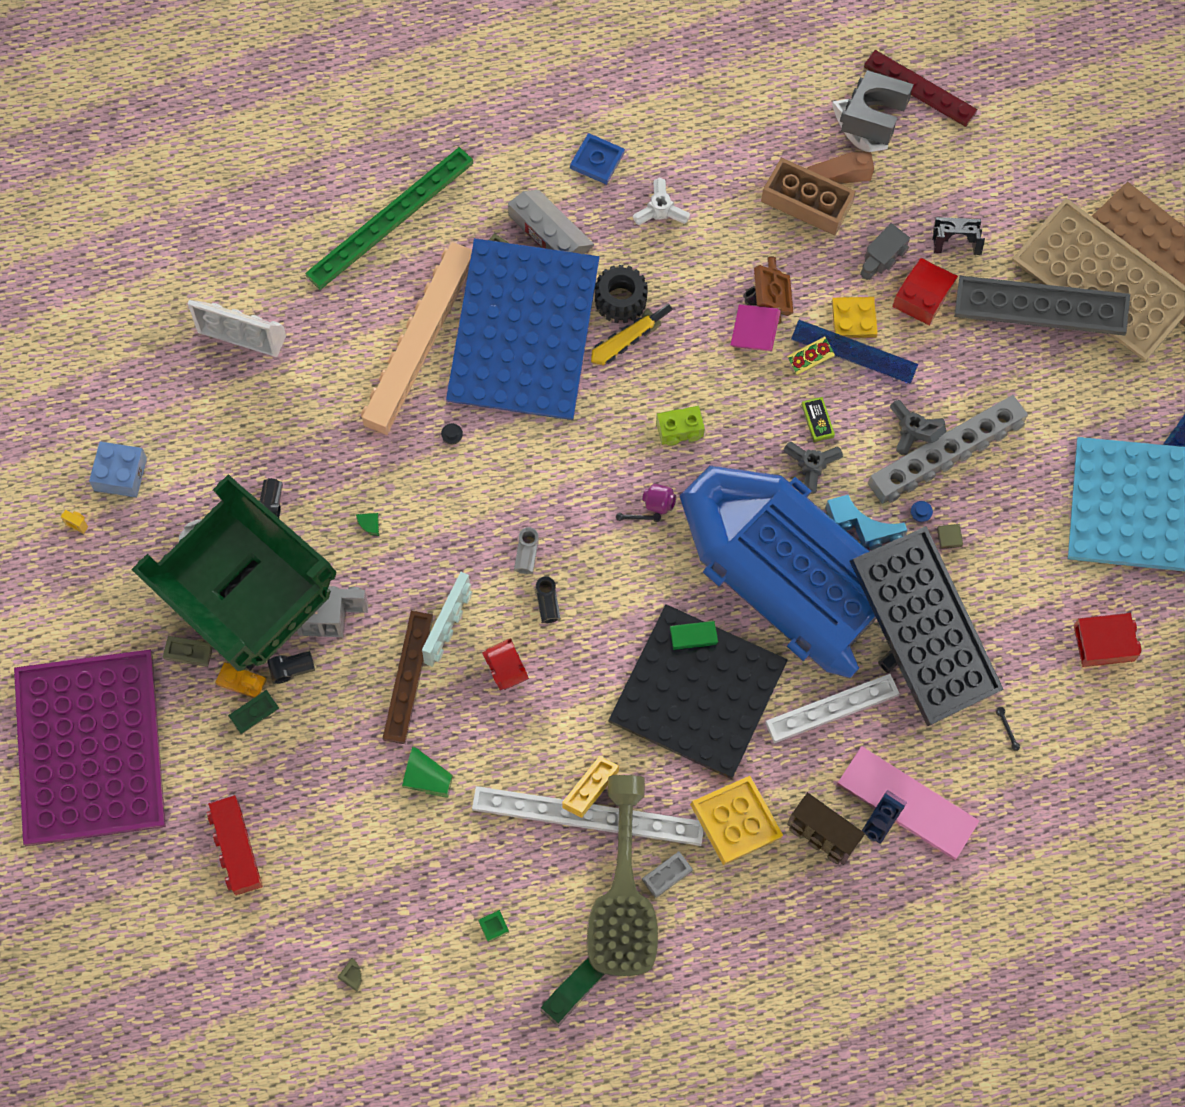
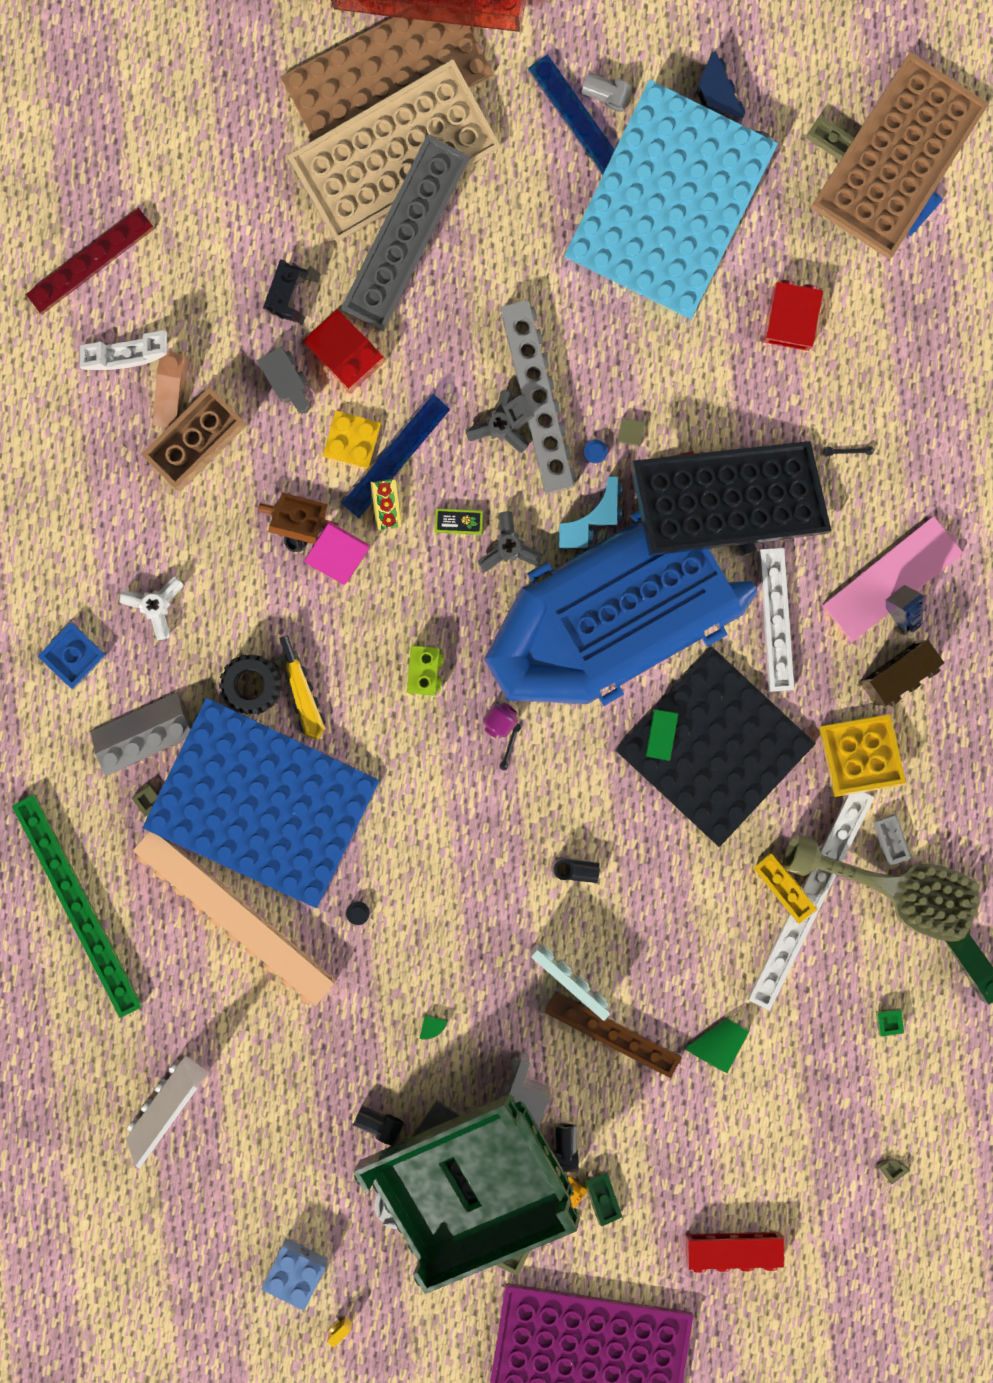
camera: 70 degrees left, 20 degrees up
(506, 664) = (635, 935): red brick -> none
(526, 552) = (518, 875): light grey piece -> none
(875, 90) = (81, 316): dark grey arch -> none

